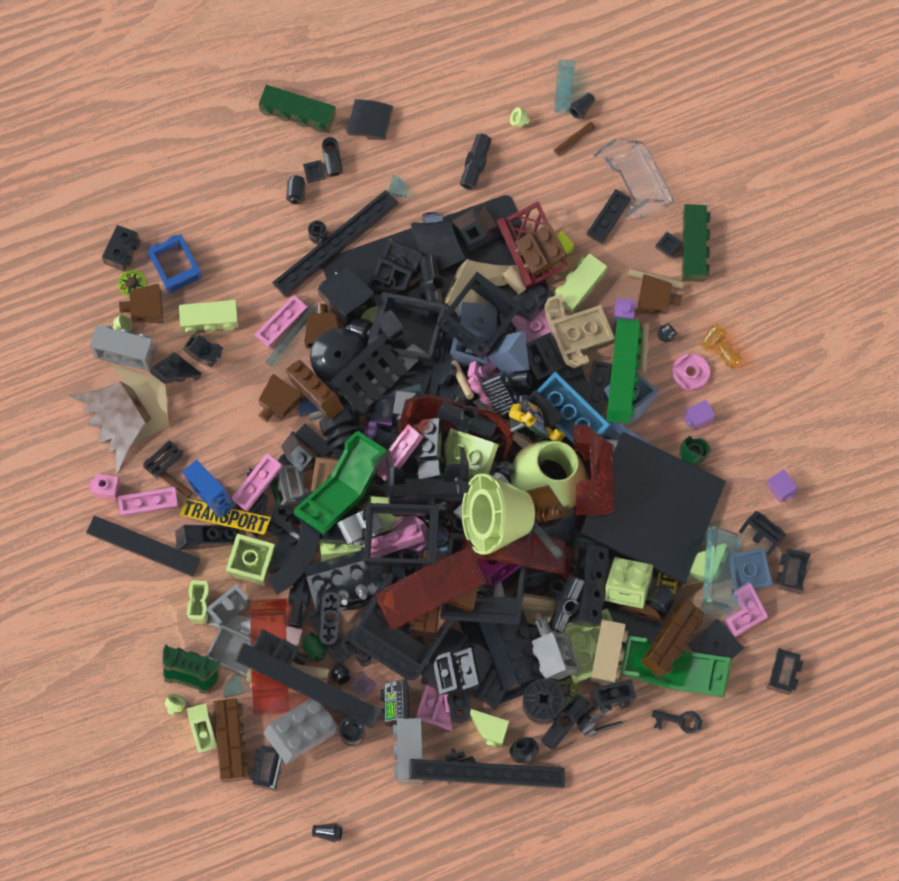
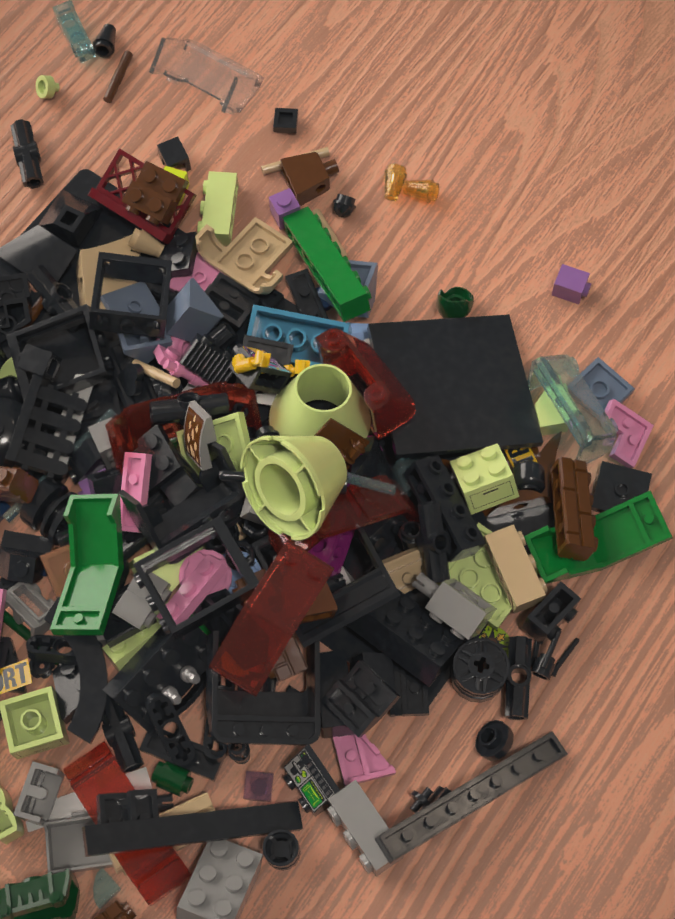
camera: 30 degrees left, 5 degrees down
(340, 674) = (224, 790): black plate -> none
(430, 217) = (14, 232): tile -> none
(459, 704) = (384, 735): black plate -> none
(460, 442) = (197, 434): none -> slope
(490, 728) = (438, 740): yellowish green slope -> none
(574, 224) = (173, 153): none -> black panel
(608, 216) = (204, 129): black tile -> none
(680, 719) = (639, 595): black piece -> none
(687, 382) = (395, 241): bright pink tile -> none
(694, 243) = (312, 103): dark green brick -> none
(699, 415) = (435, 265): medium lavender brick -> none
(764, 528) = (586, 337): black window -> none
(793, 571) = (644, 362): black window -> none

